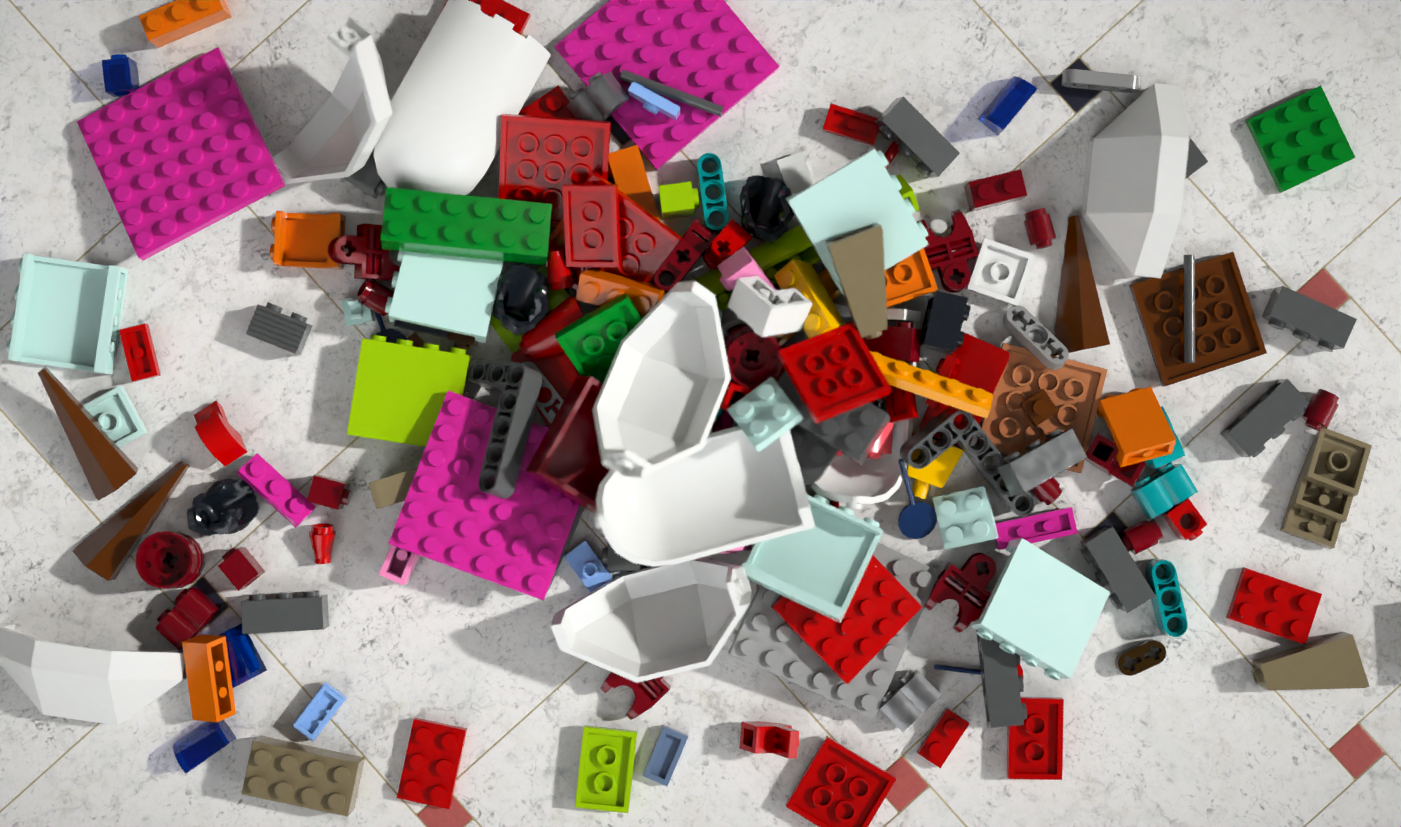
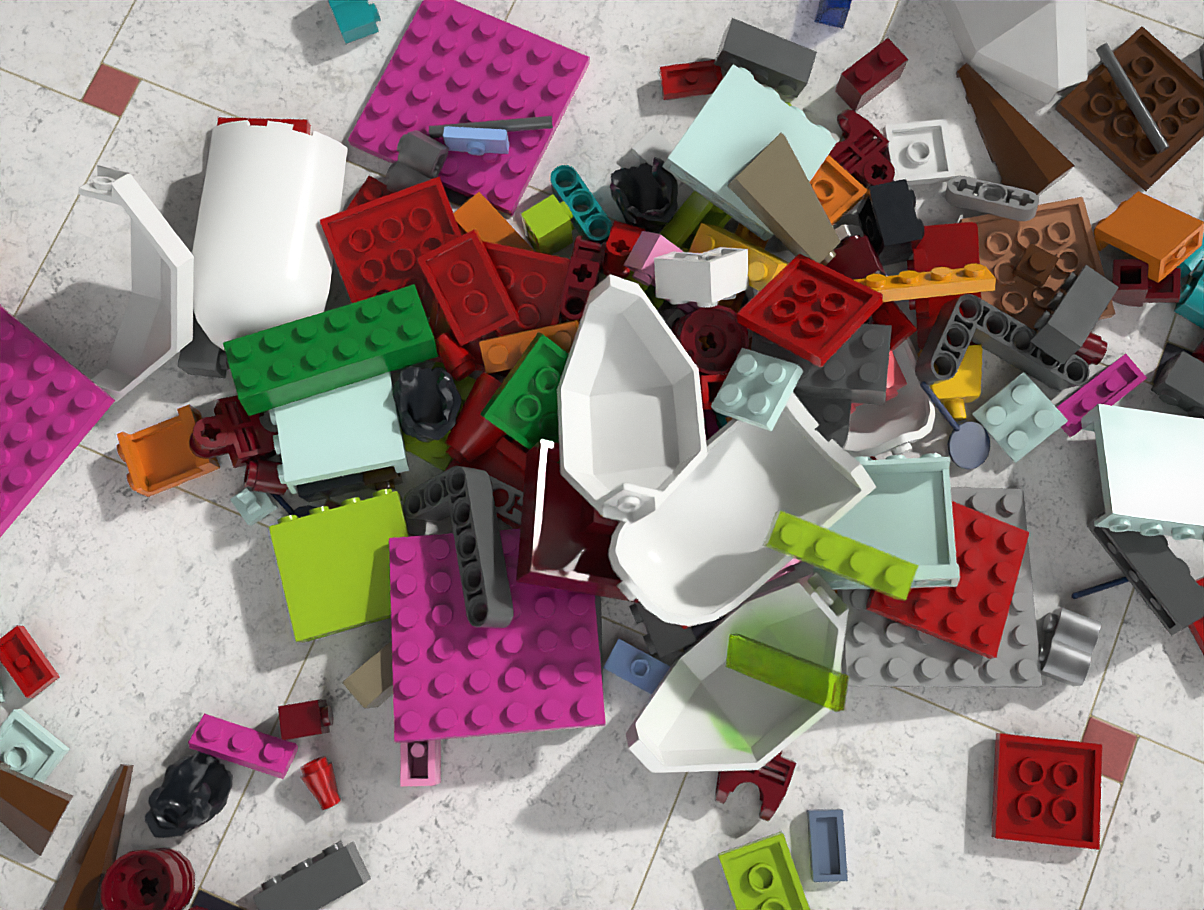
camera: 25 degrees left, 10 degrees down
(218, 434) = (151, 712): red brick -> none
(240, 567) = (238, 857): dark red brick -> none
(279, 329) = (173, 562): dark grey brick -> none
(690, 624) = (787, 672): none -> clear neon green tile
(761, 564) = (840, 555): none -> lime brick
(769, 738) = (938, 765): red brick -> none
(943, 737) = (1125, 672): red plate -> none
(969, 607) = (1062, 493): dark red piece -> none
(1039, 228) = (935, 92): dark red brick -> none

